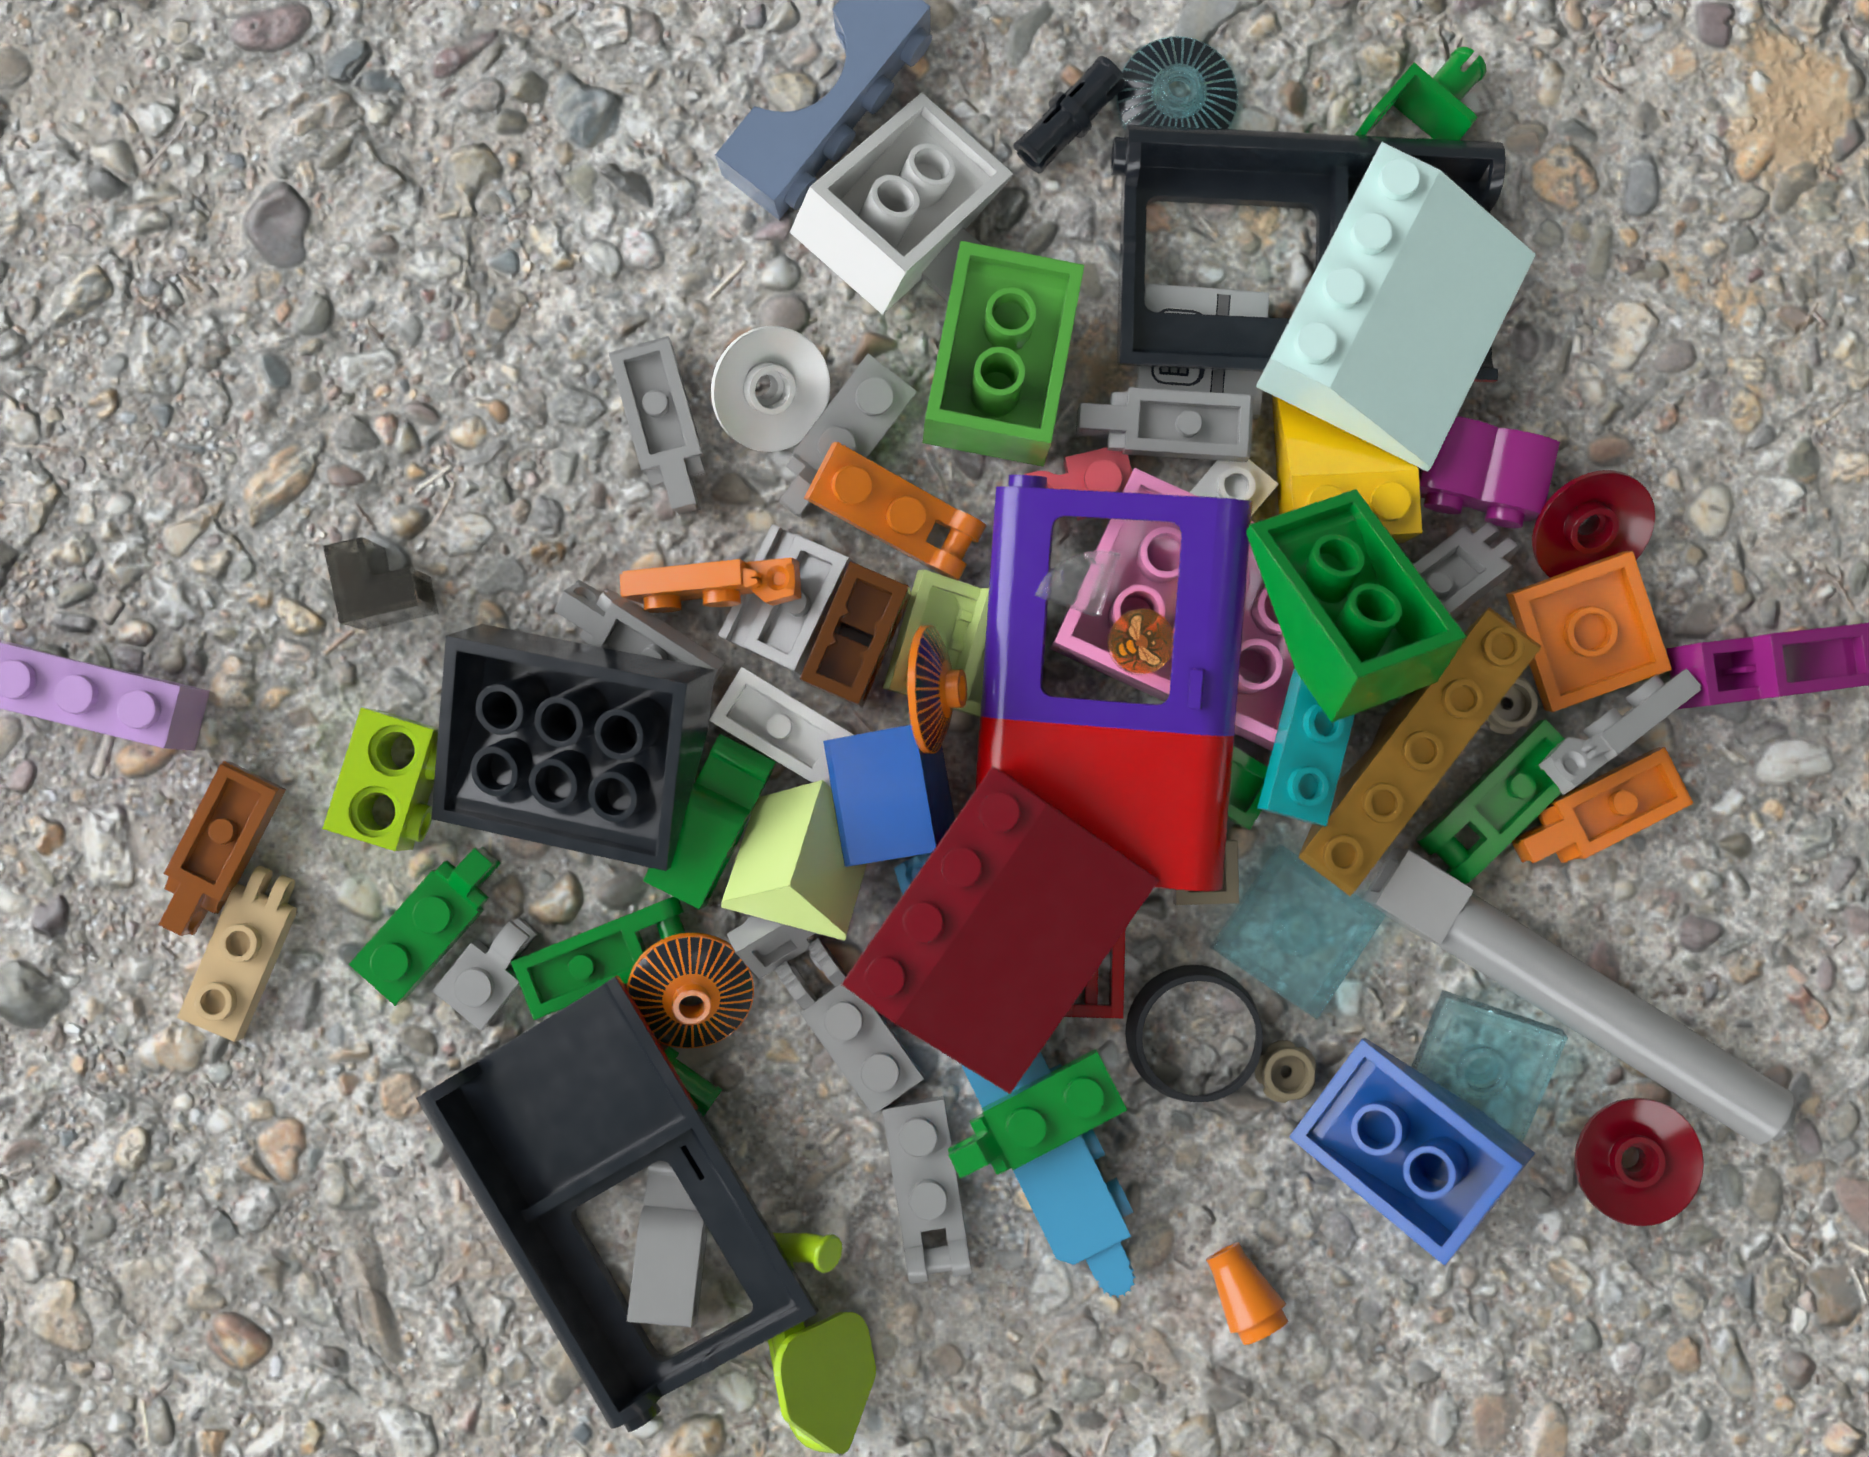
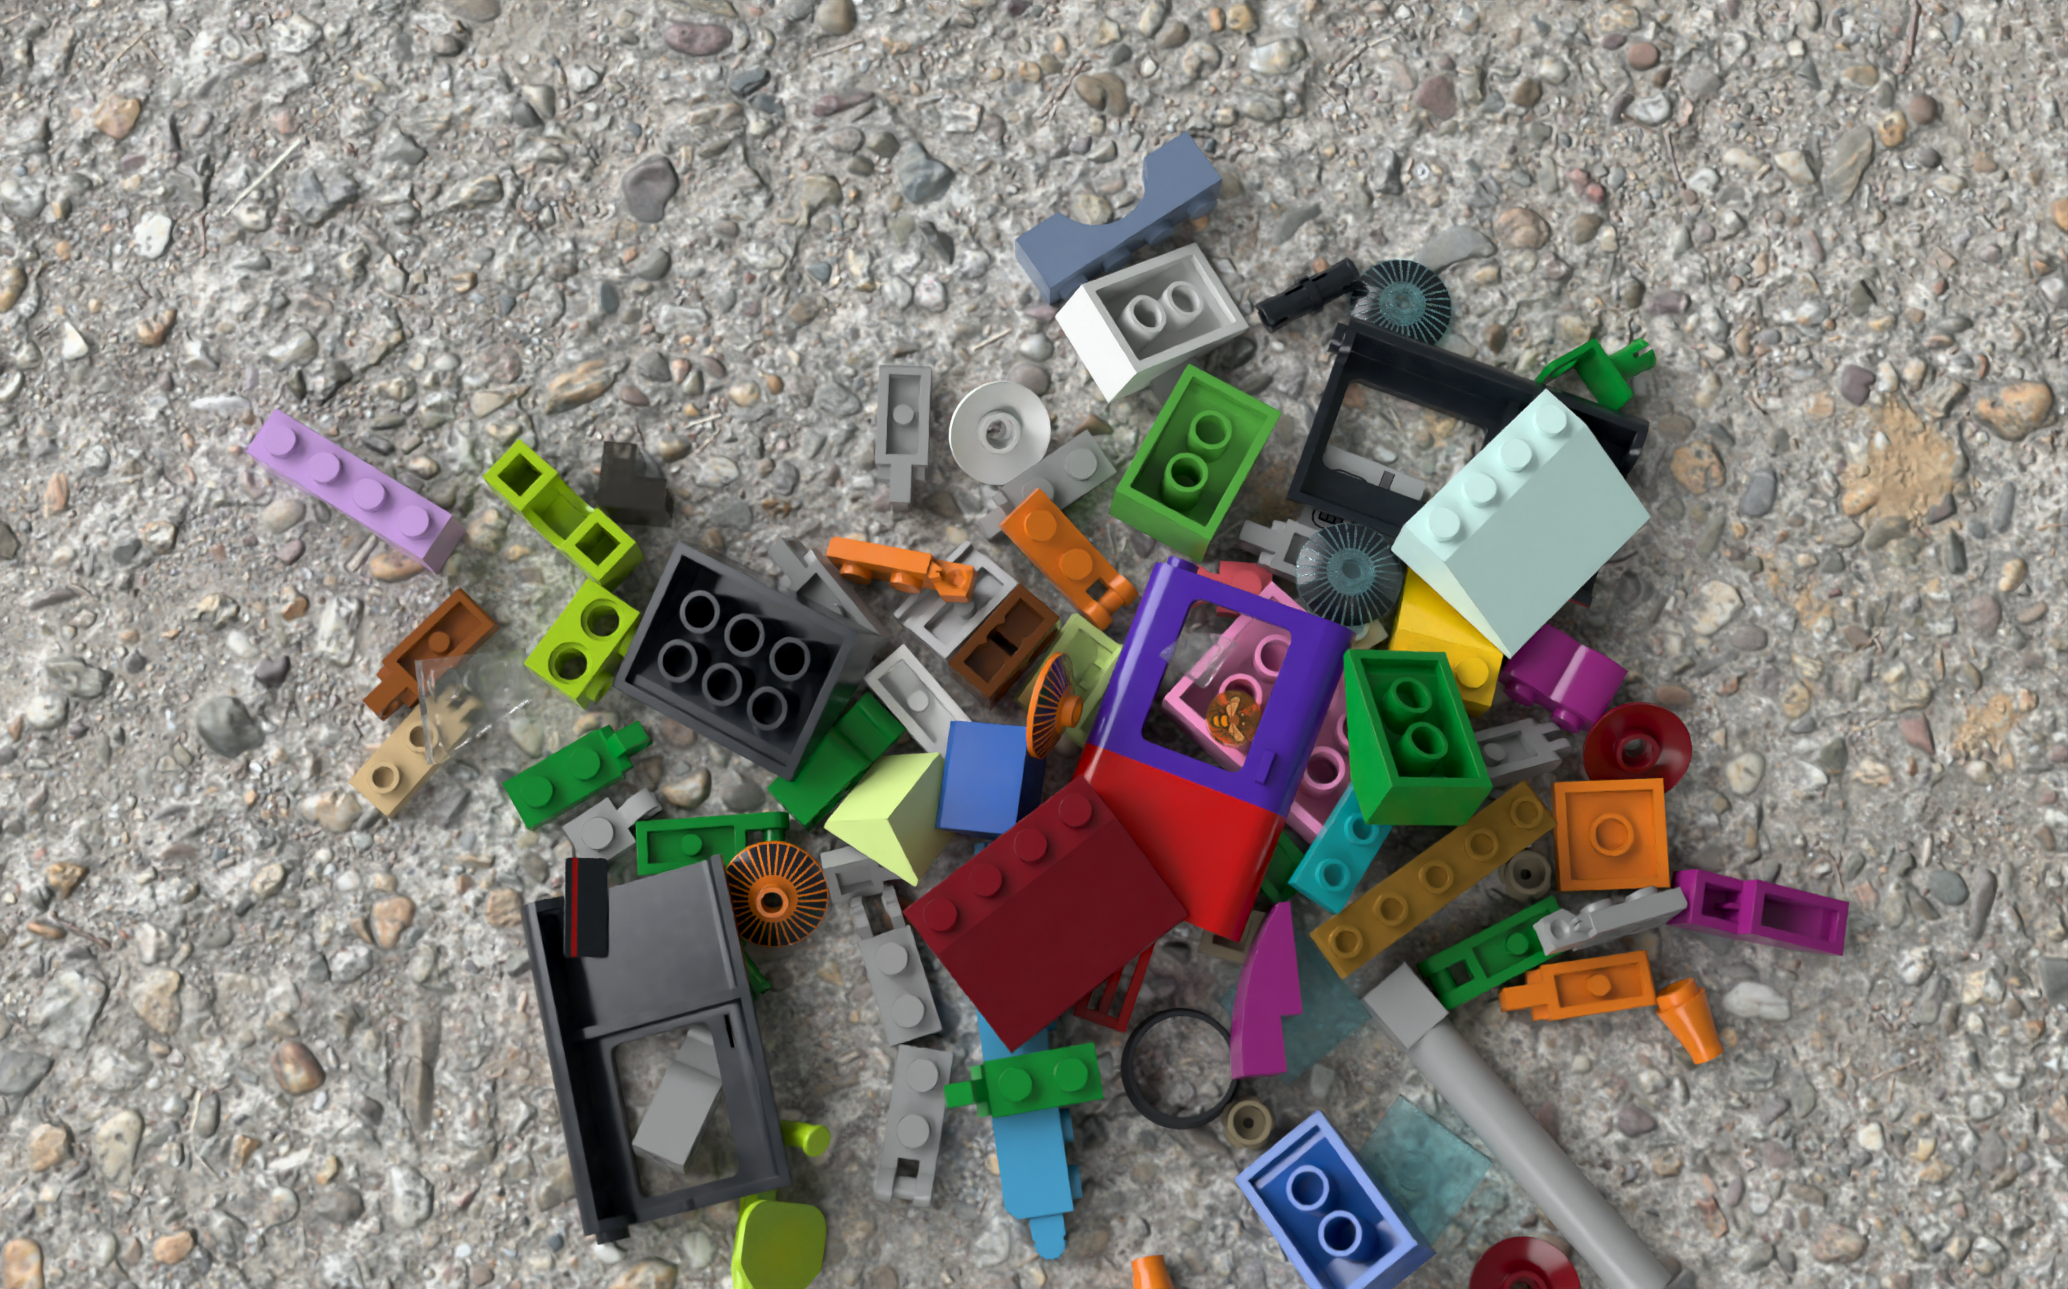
camera: 15 degrees right, 10 degrees down
(275, 883) = (467, 696): none -> clear wing
(309, 645) = (562, 517): none -> lime arch
(488, 1074) = (585, 907): none -> black sticker
(1197, 455) = (1333, 595): none -> dish
(1268, 939) = (1264, 996): none -> magenta slope
(1730, 805) = (1690, 1019): none -> orange cone

